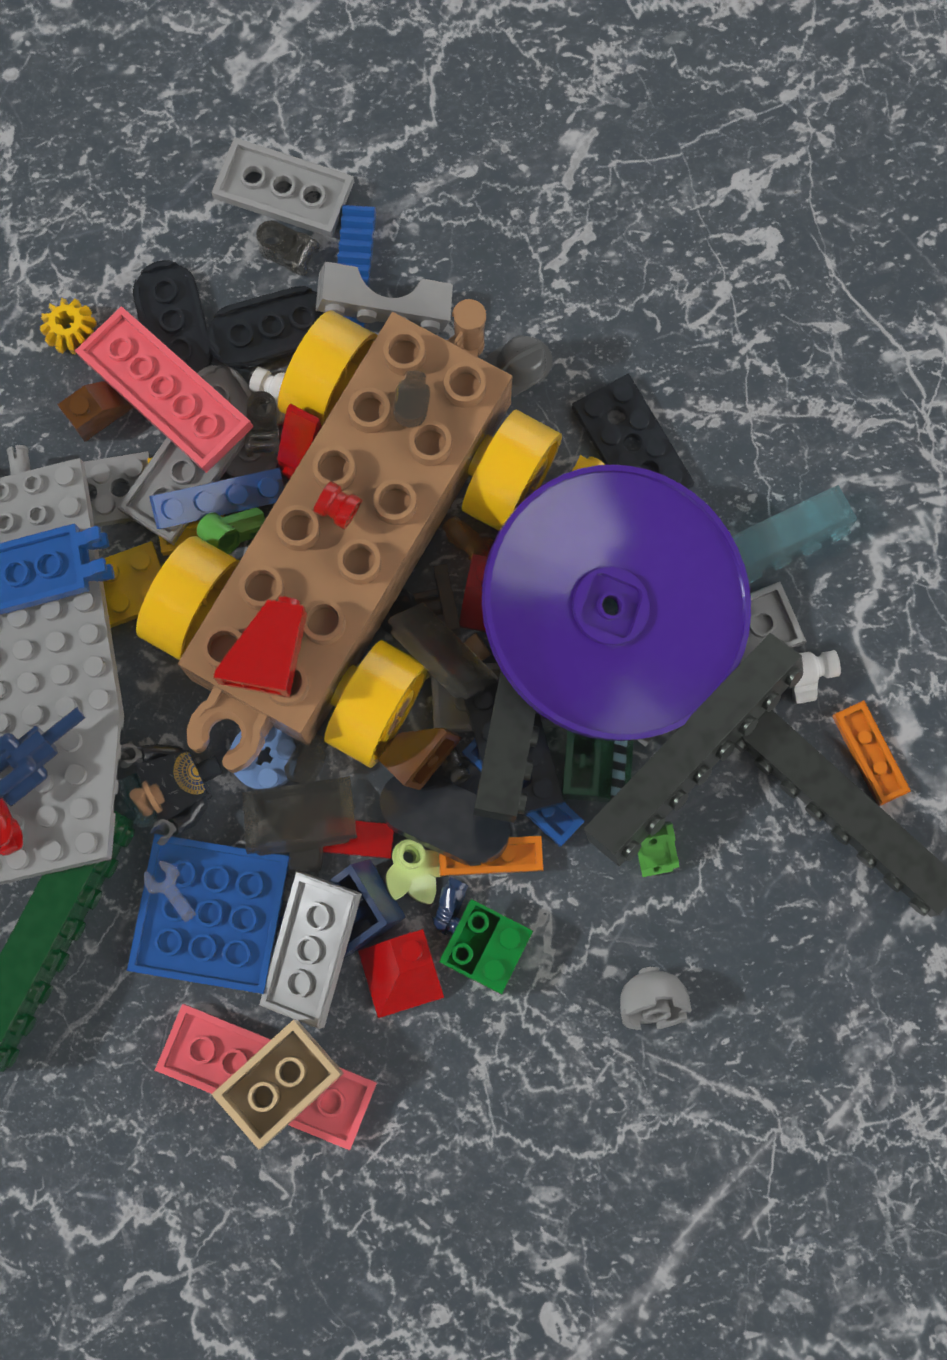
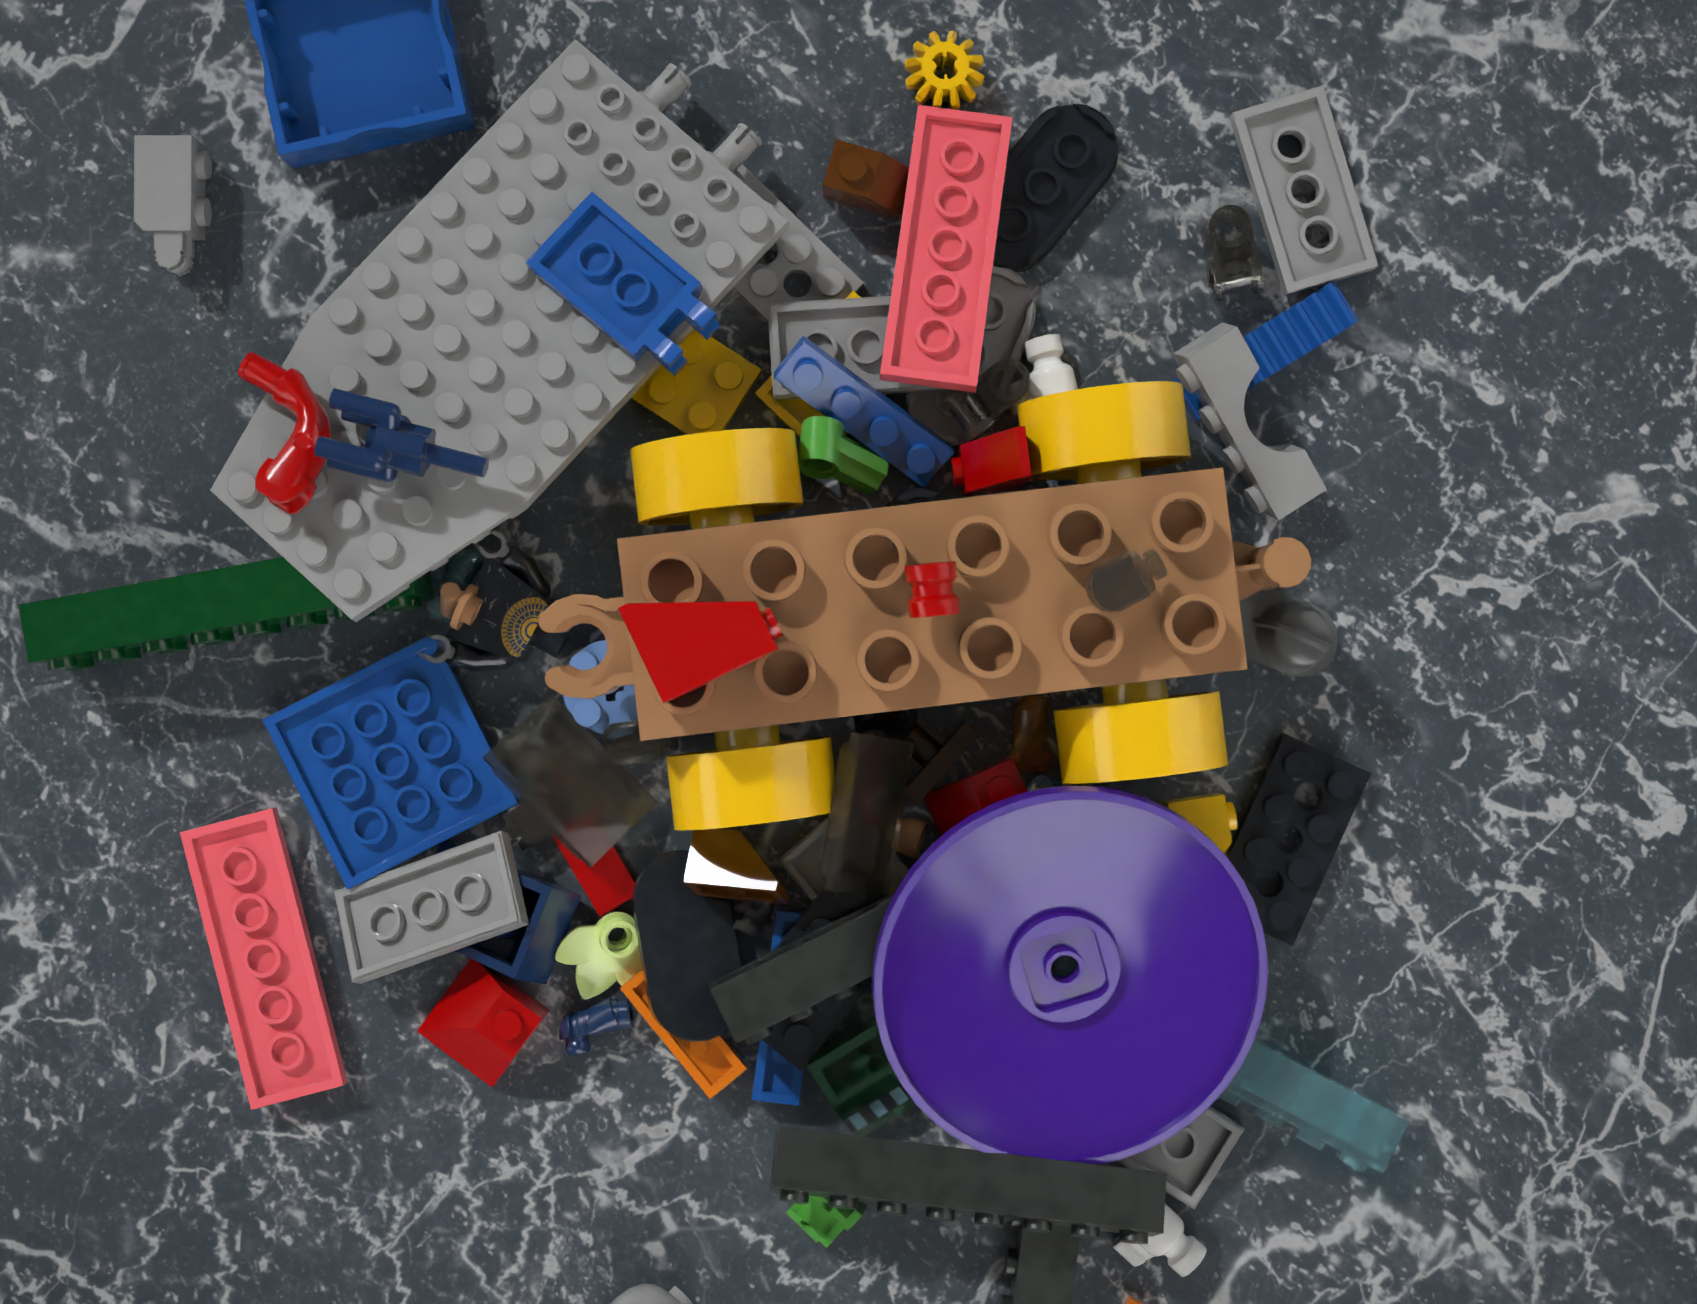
camera: 50 degrees right, 10 degrees up
(170, 890) = (382, 700): clear bar -> none
(262, 327) = (1114, 307): black tile -> none
(277, 1084) = (256, 987): tan brick -> none
(486, 946) = (577, 1102): green slope -> none

